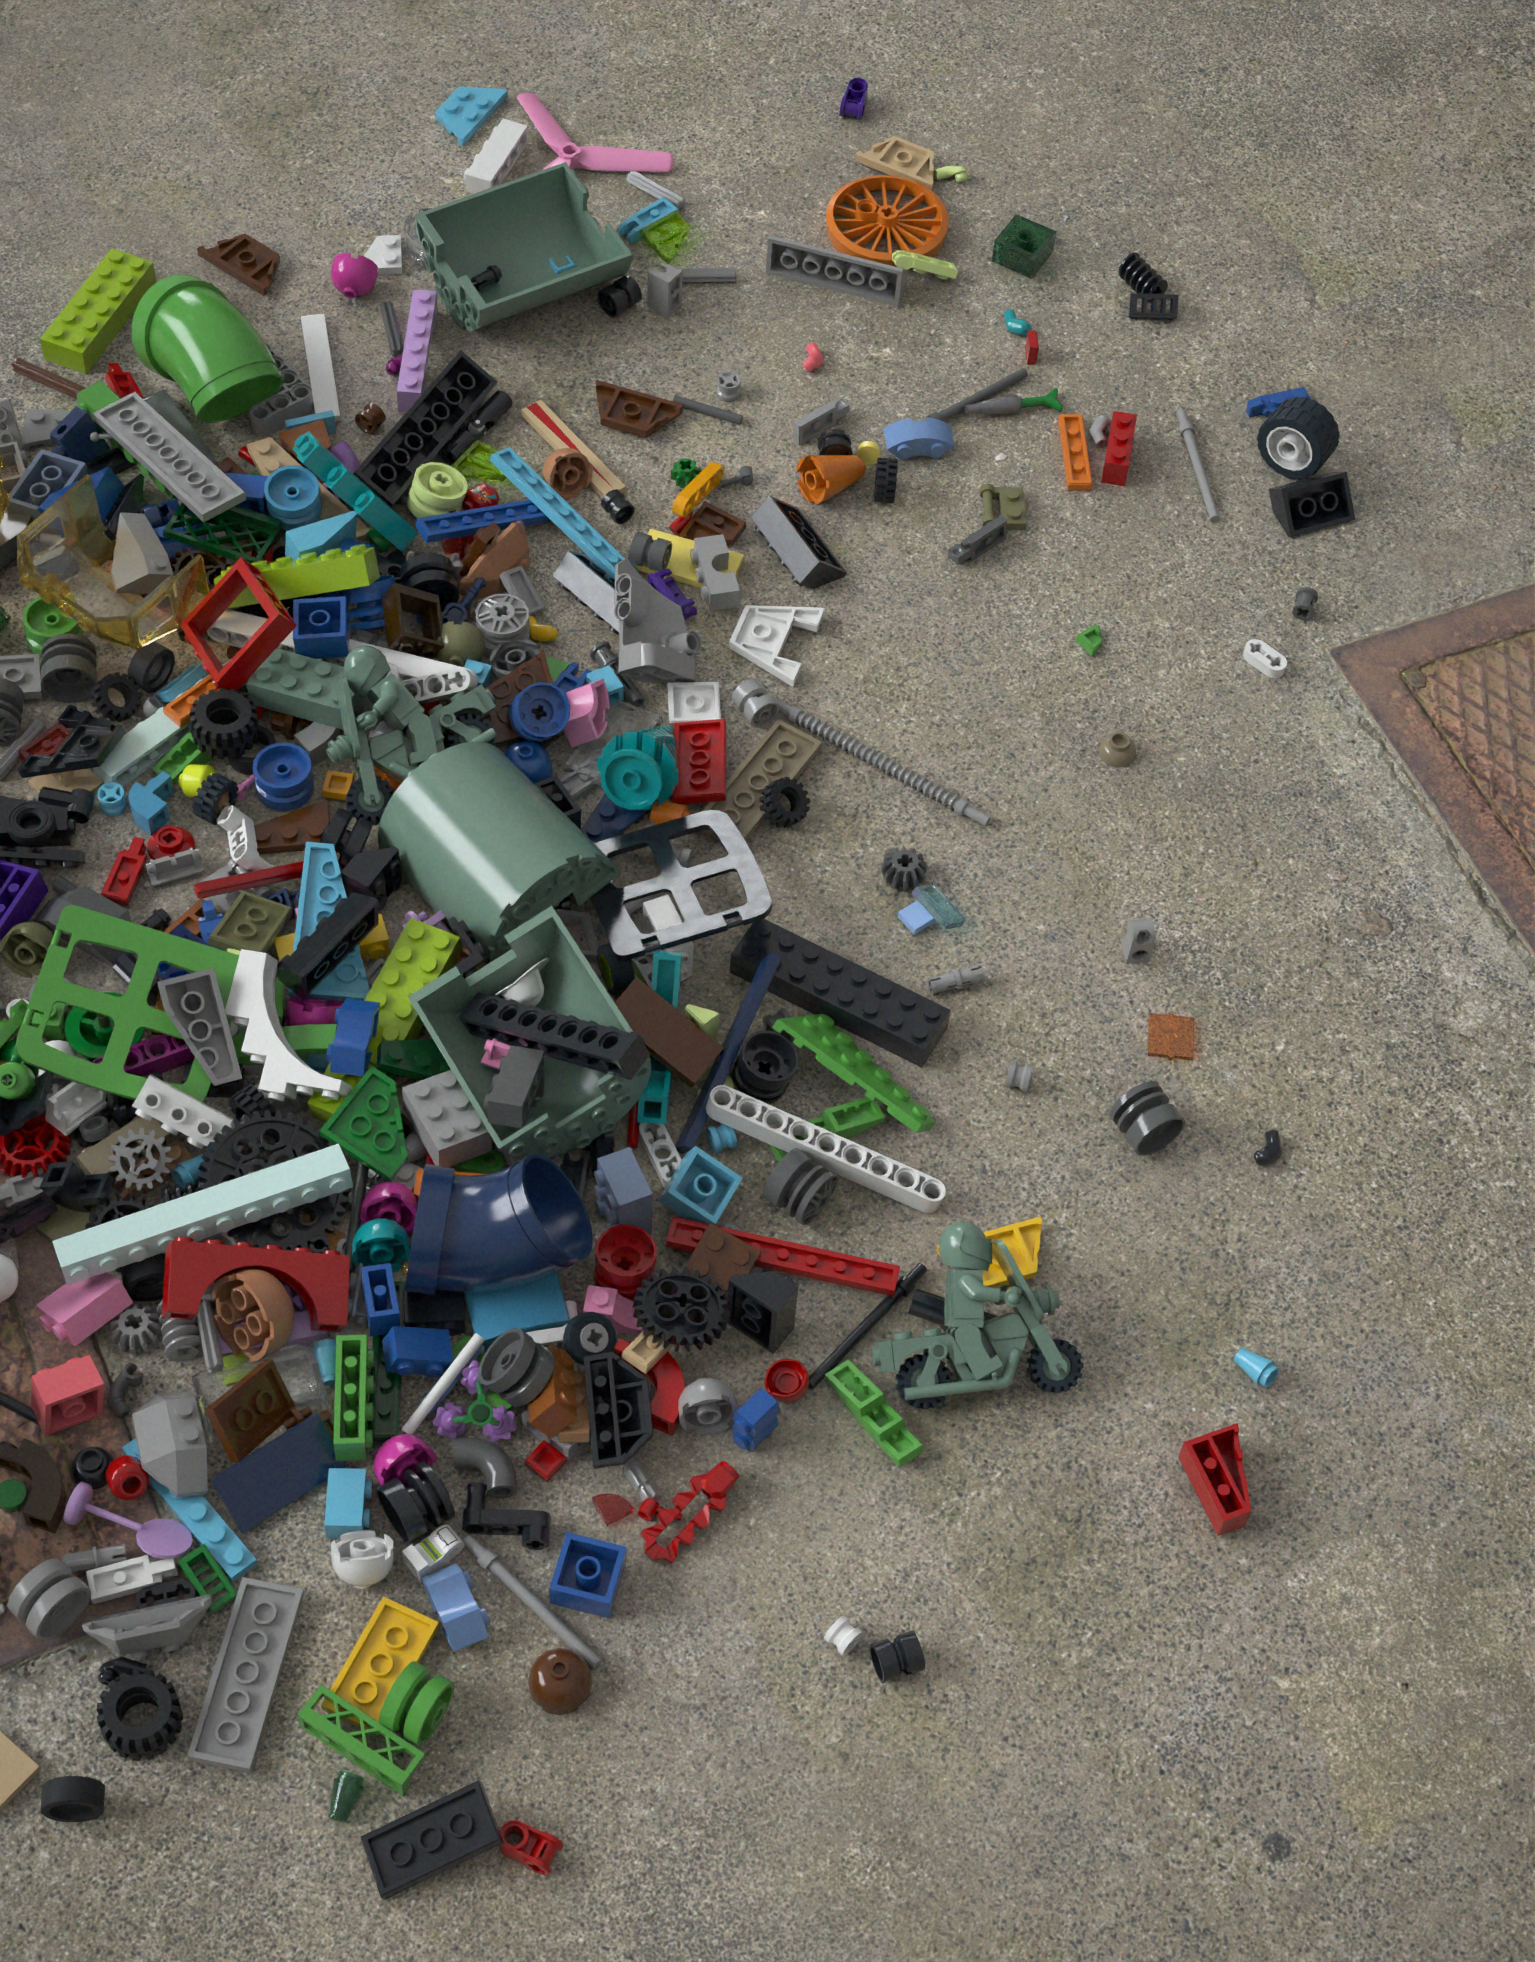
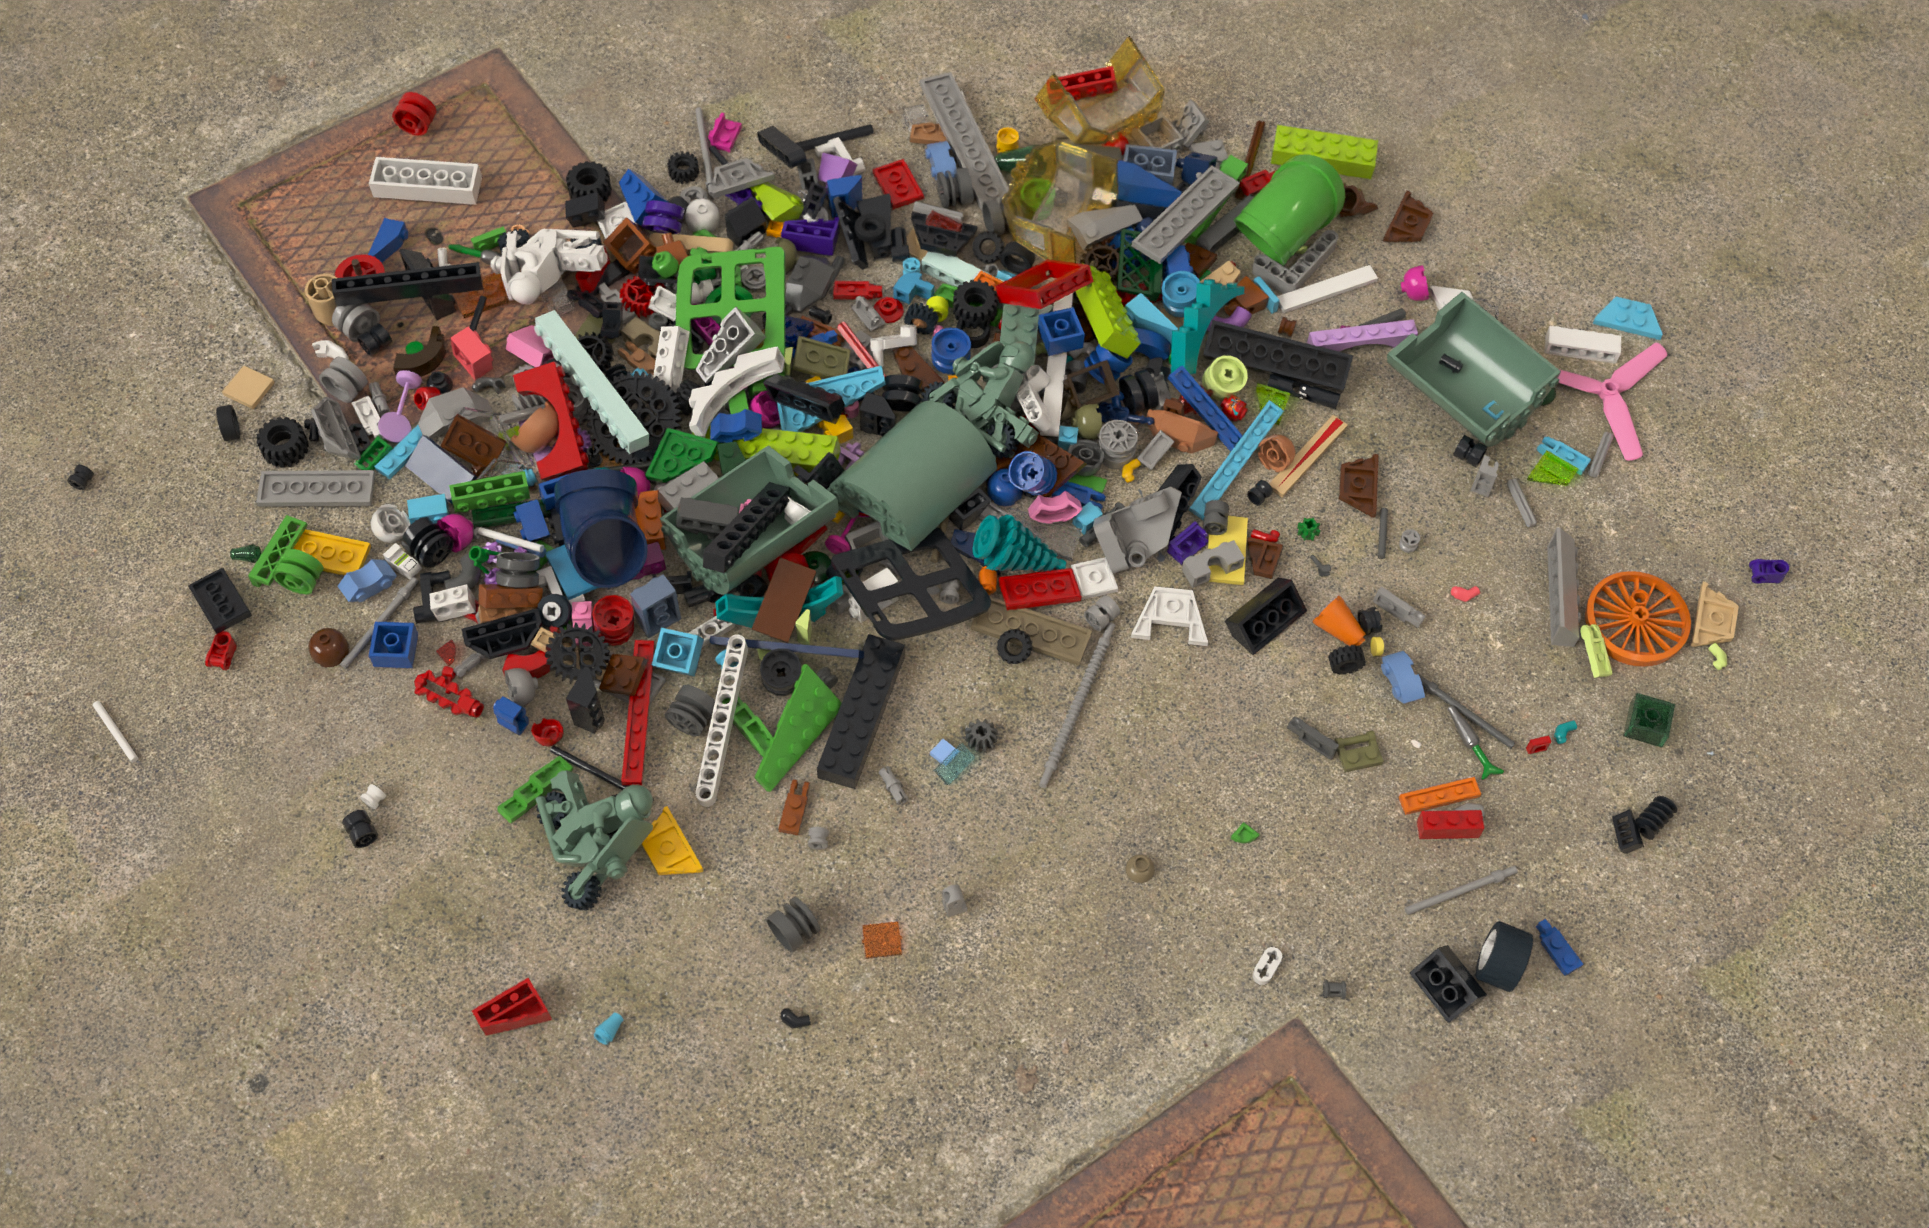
camera: 80 degrees right, 5 degrees up
(153, 1165) = (635, 346): light grey gear -> none
(533, 1479) = (452, 603): none -> white brick
(698, 489) = (1290, 537): light orange beam -> none
(964, 1098) = (794, 809): none -> dark orange hinge

